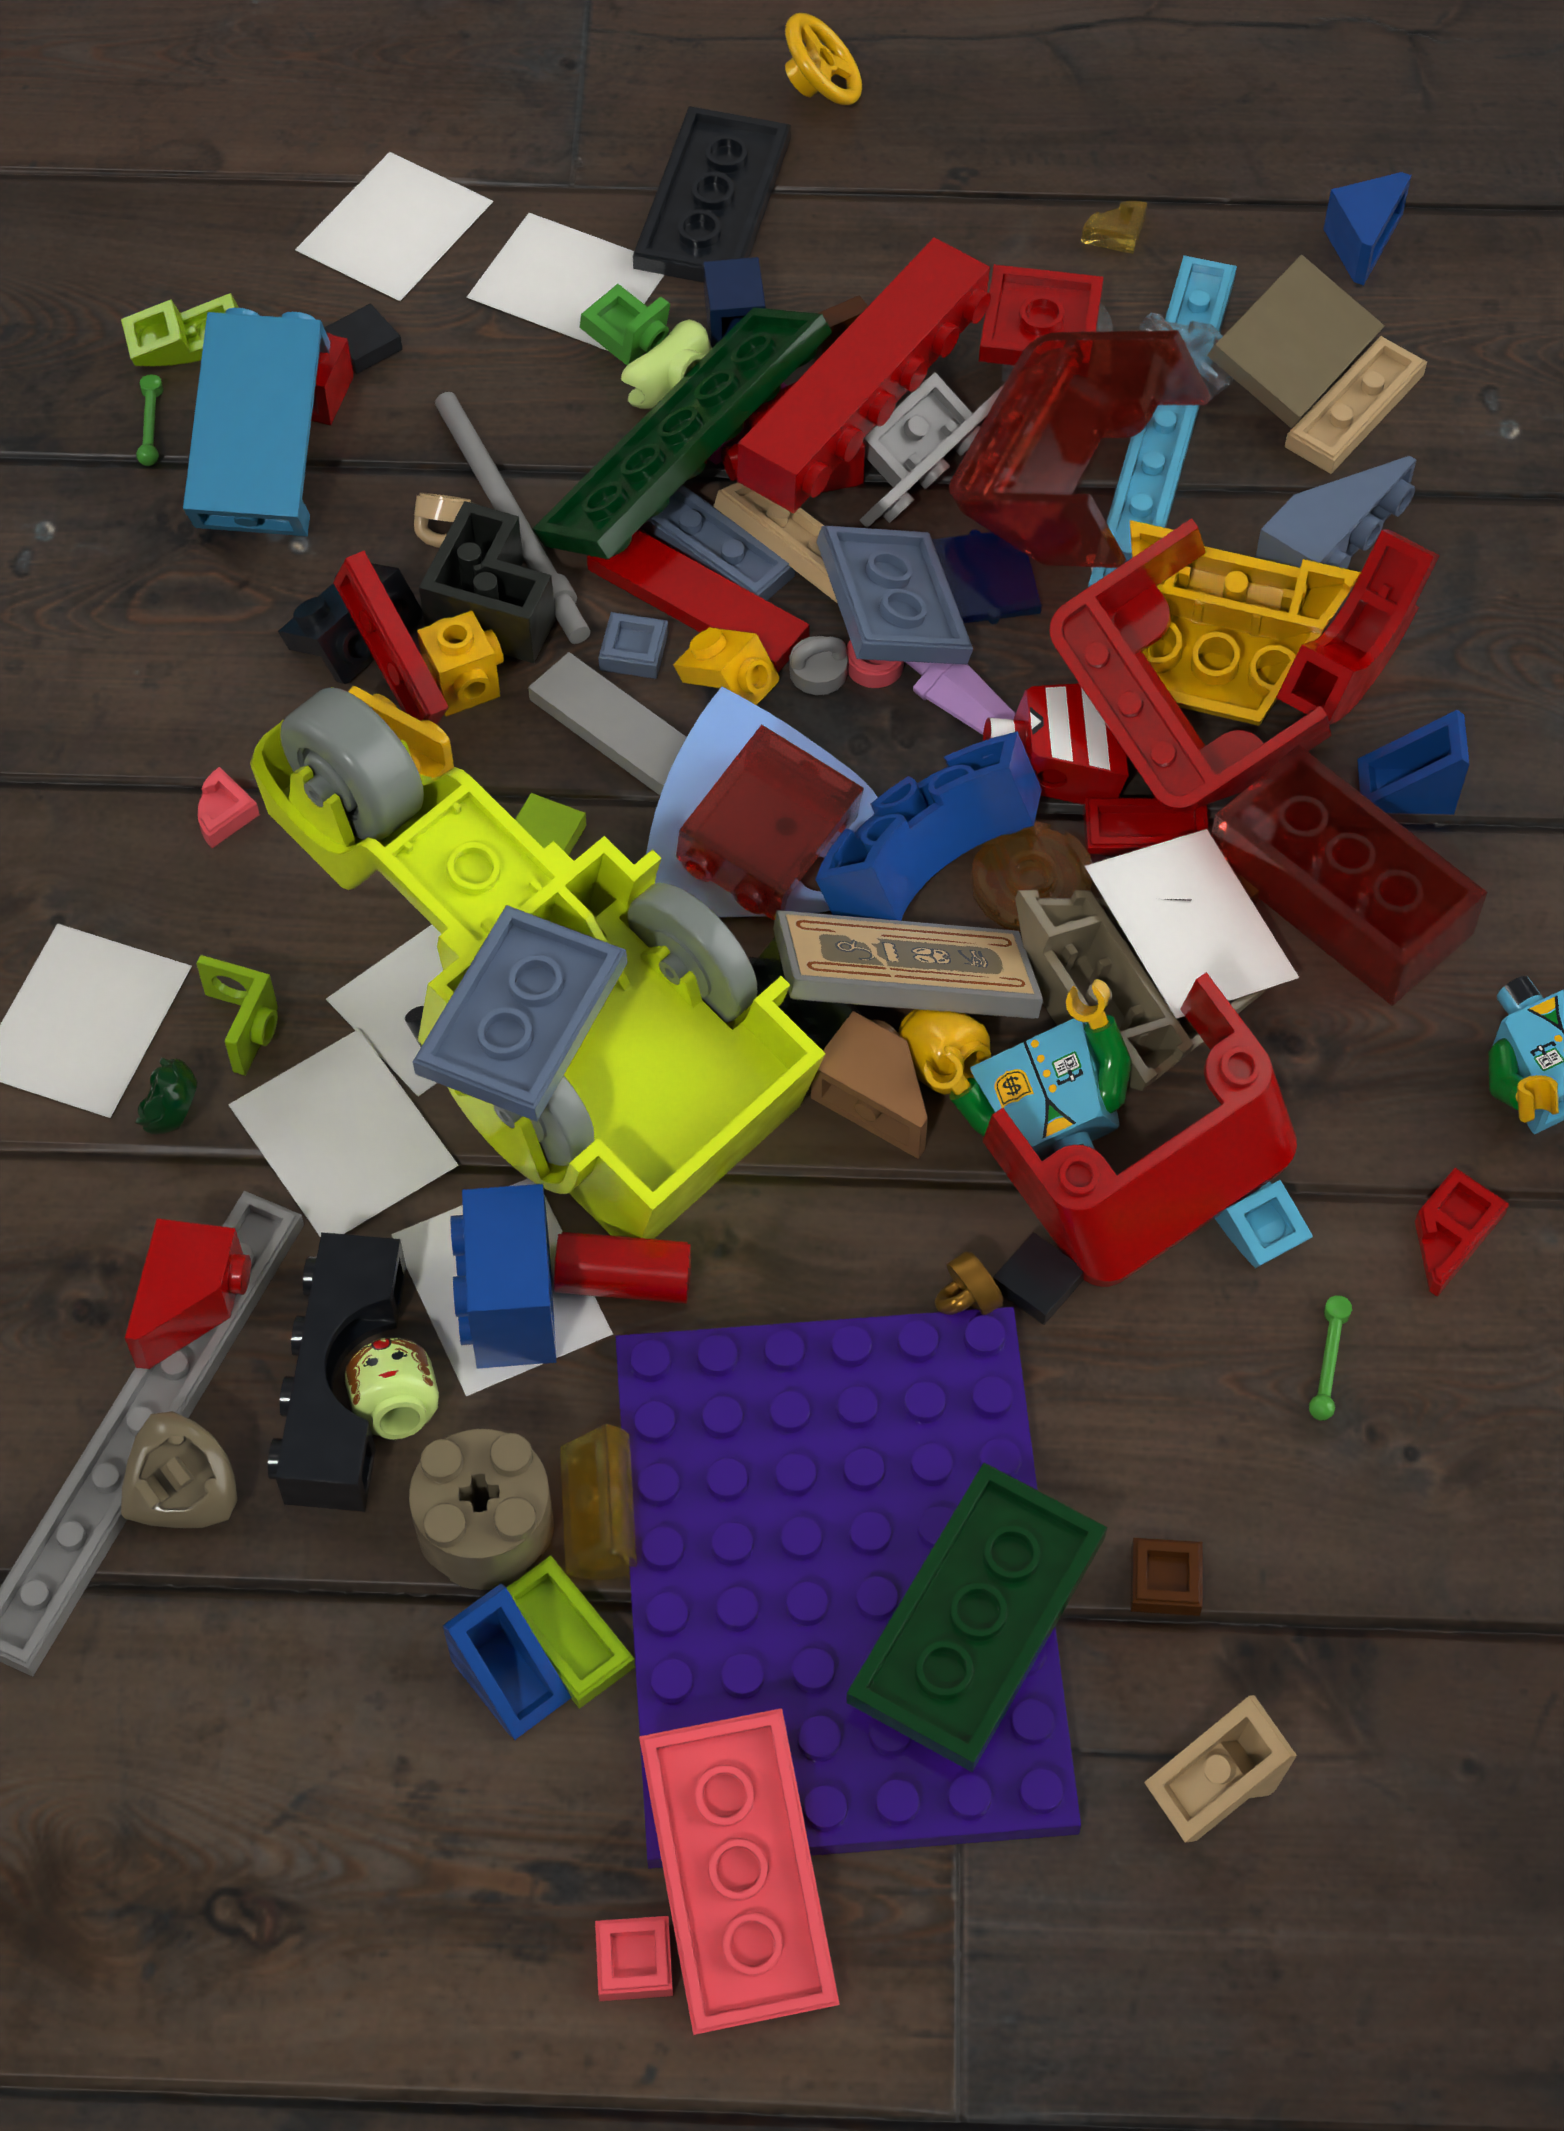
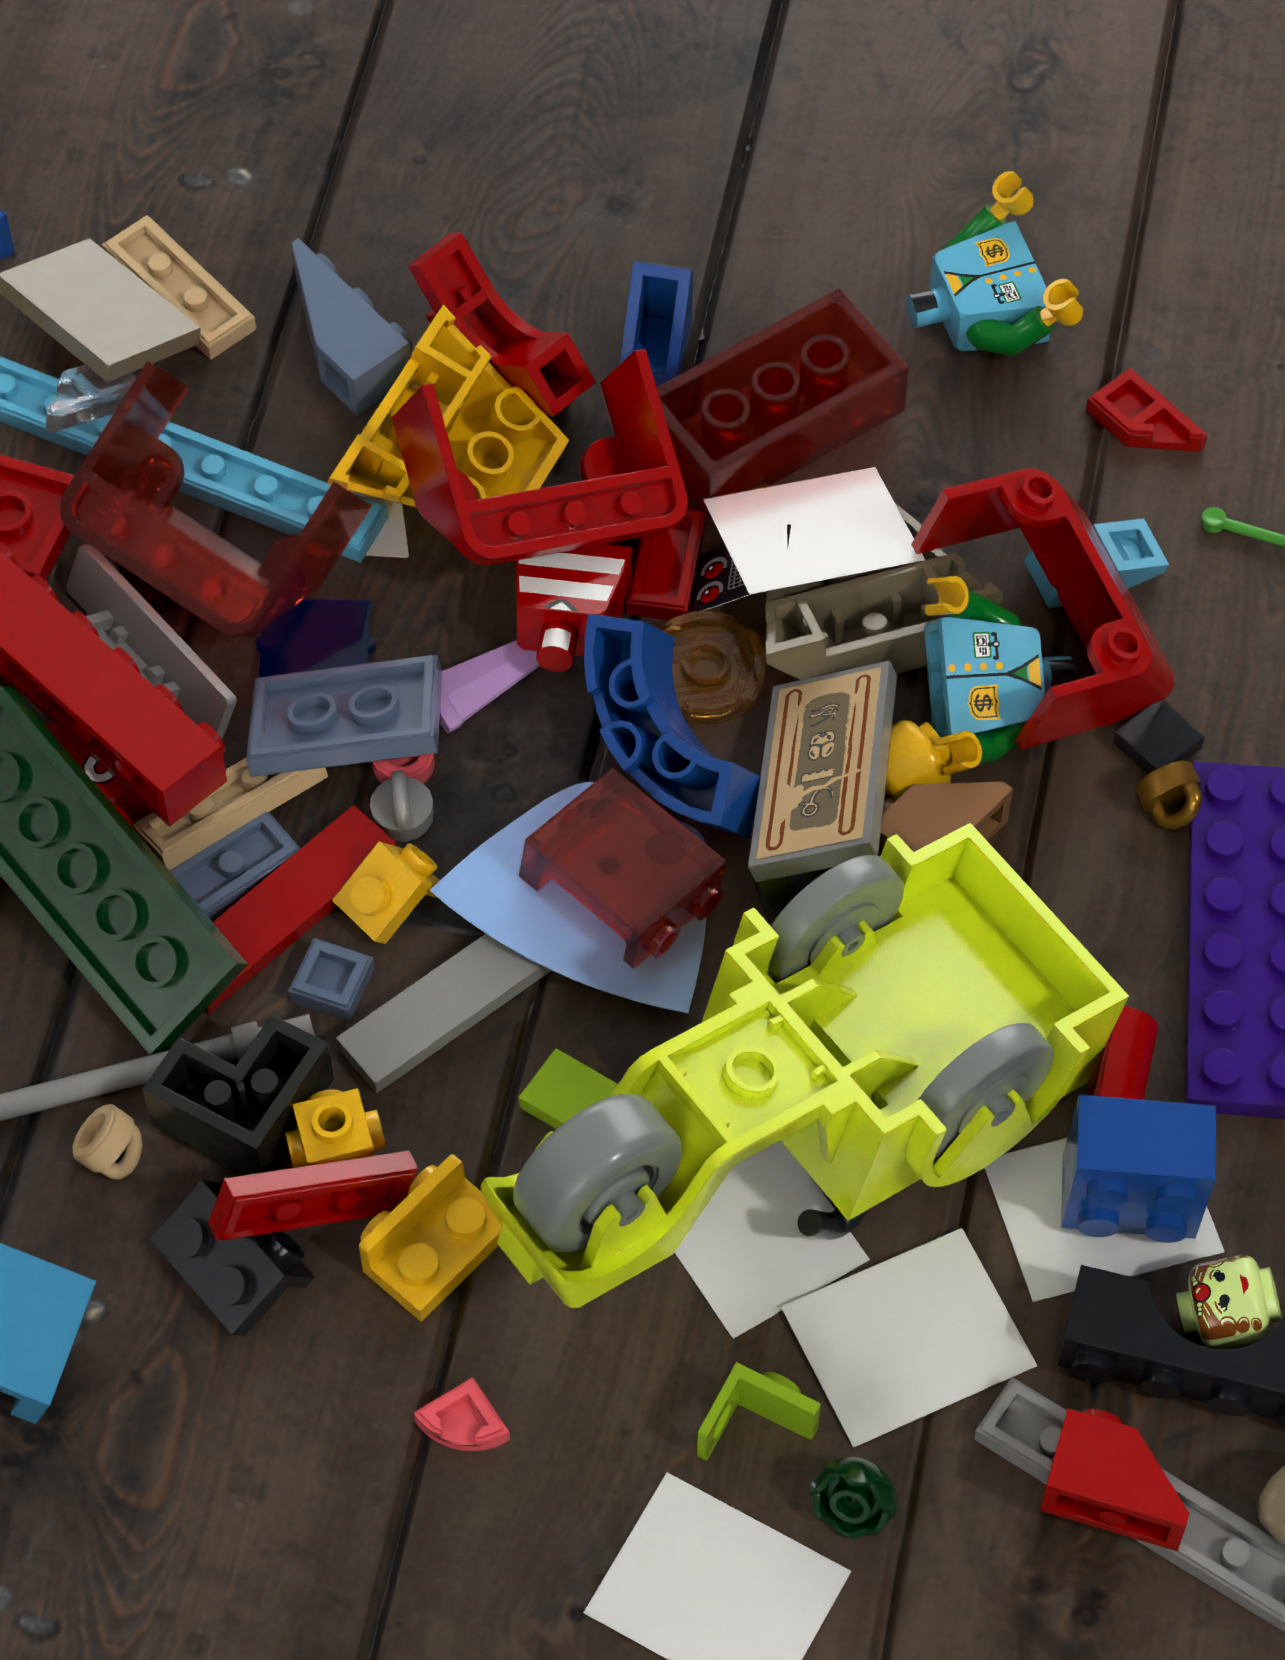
camera: 80 degrees left, 0 degrees up
(520, 1013) = (942, 1045): sand blue tile -> none

